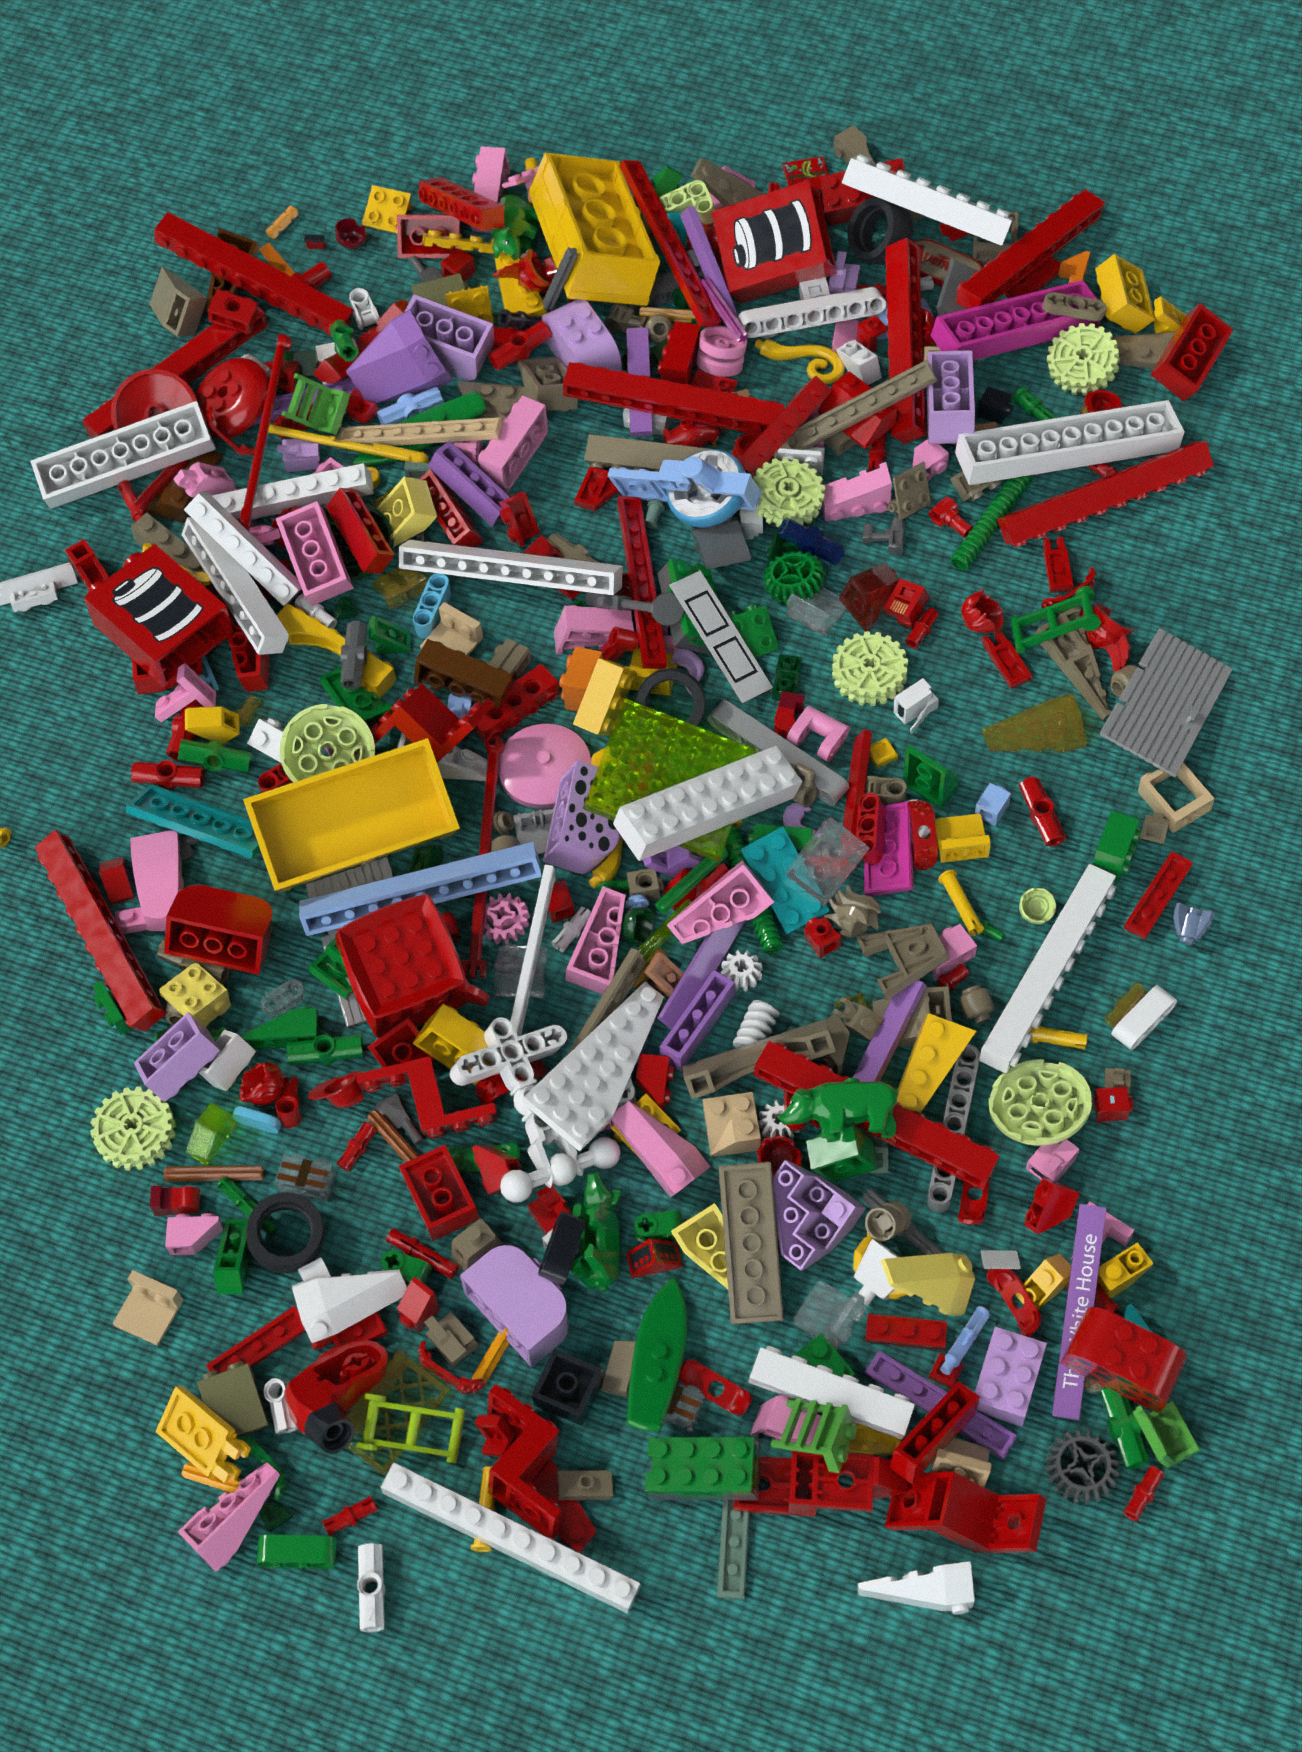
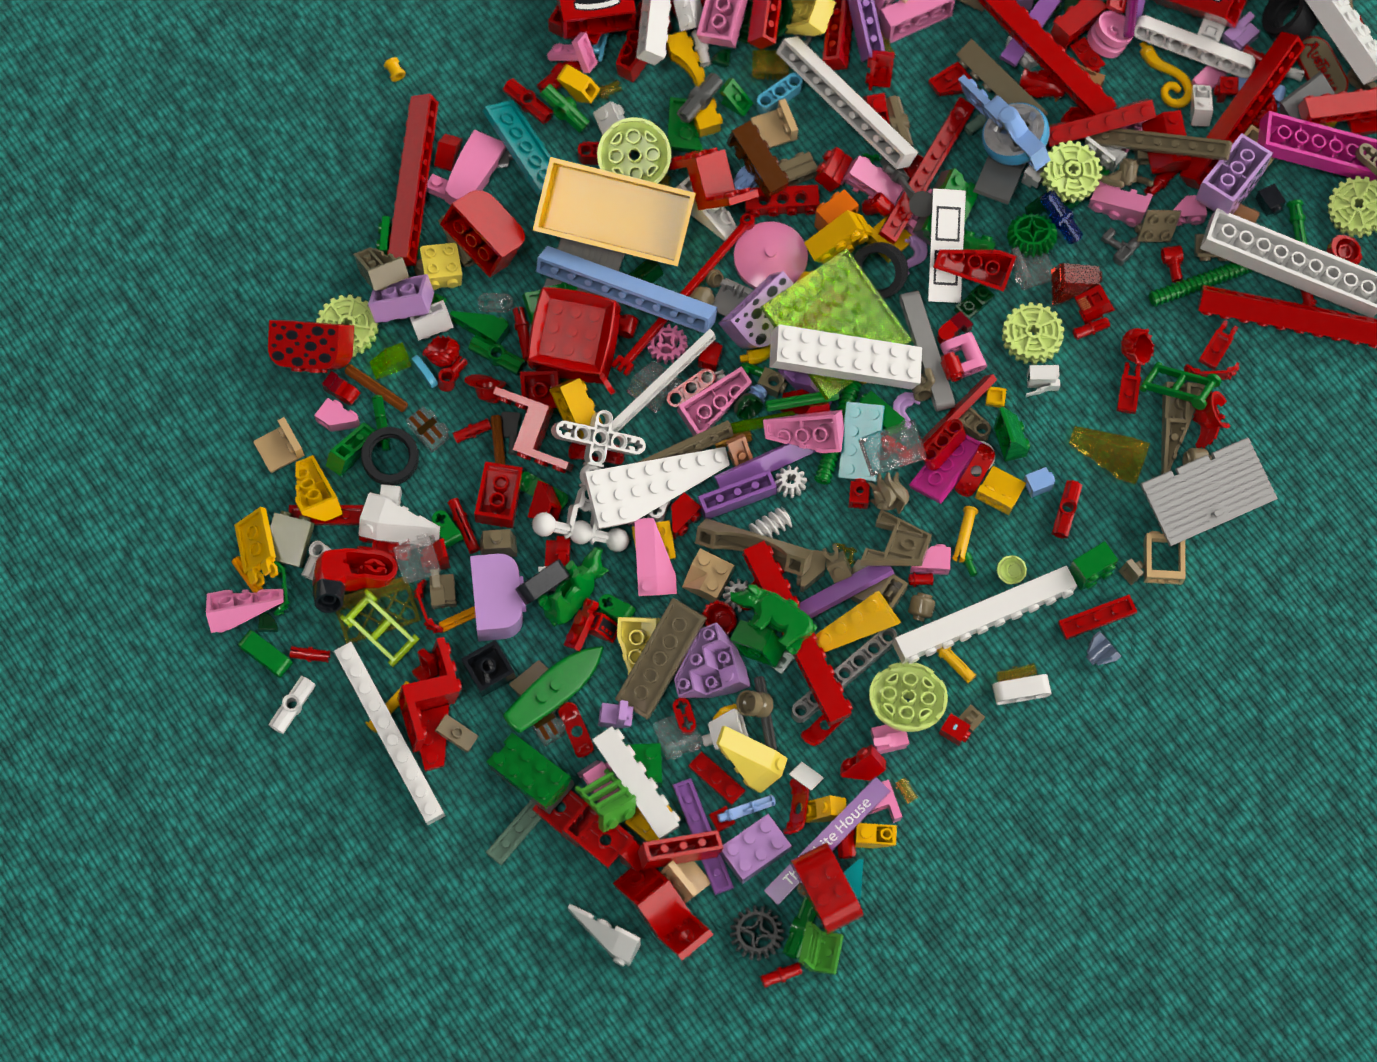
camera: 30 degrees right, 10 degrees up
(108, 1171) = (310, 345): none -> red brick
(130, 1041) = (380, 269): none -> dark tan wedge
(227, 1328) = (313, 492): none -> yellow wedge
(331, 1003) = (521, 327): none -> red pin
(400, 1320) = (417, 558): none -> clear bracket
(544, 639) = (833, 168): none -> red brick
(565, 931) = (682, 388): none -> beam
(635, 1270) = (581, 625): none -> red plate
(746, 1340) = (615, 715): none -> lavender brick
(769, 635) = (981, 266): none -> red wedge
(818, 748) = (952, 367): none -> red brick
(825, 1284) = (688, 714): none -> red beam
(843, 463) = (1126, 175): none -> dark tan piece
(1113, 1201) = (906, 790): none -> clear yellow pin

